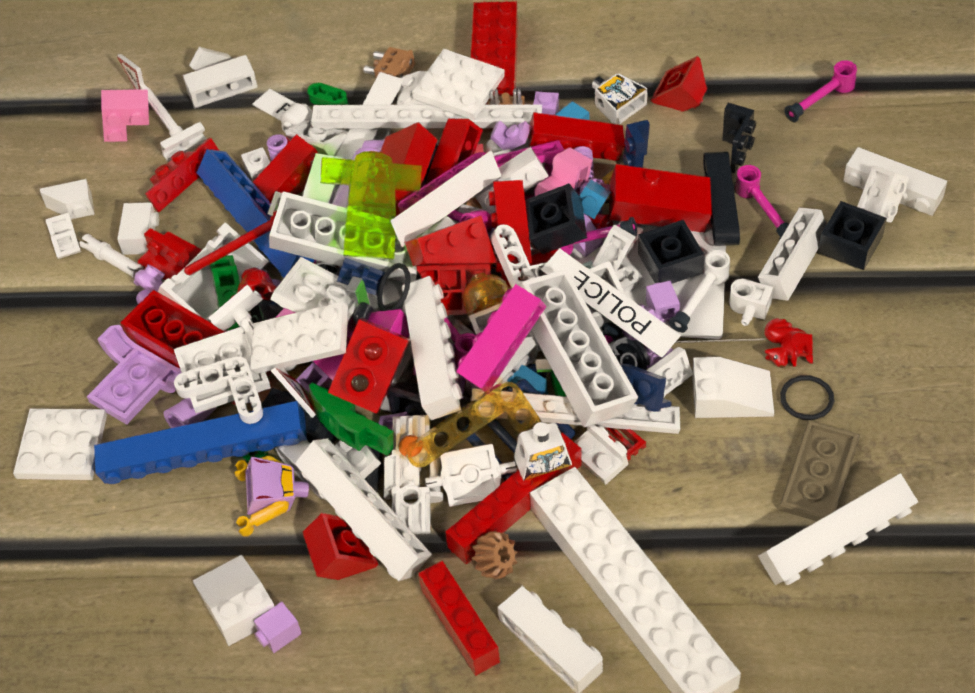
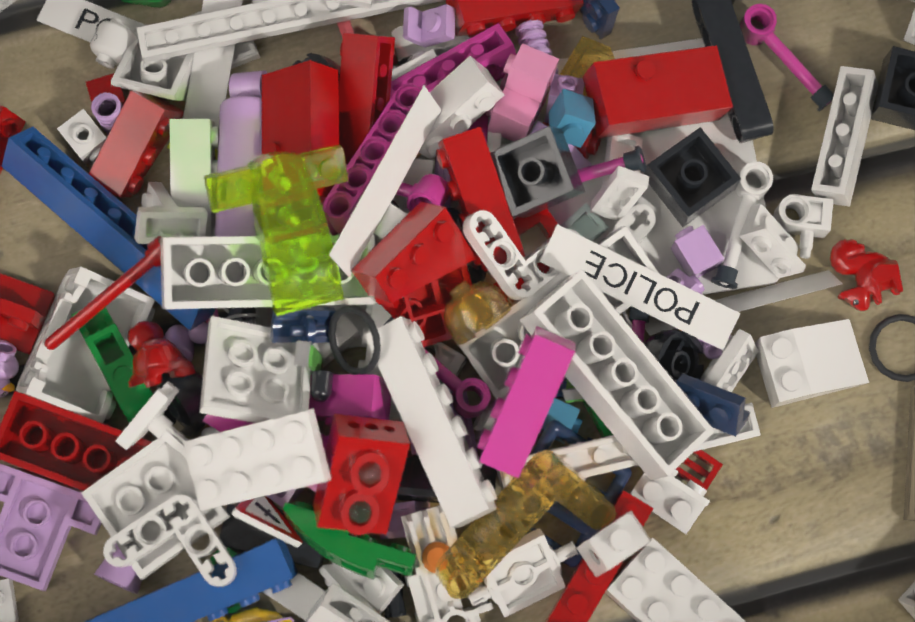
camera: 20 degrees left, 25 degrees up
(719, 304) = (771, 242): none -> white bracket

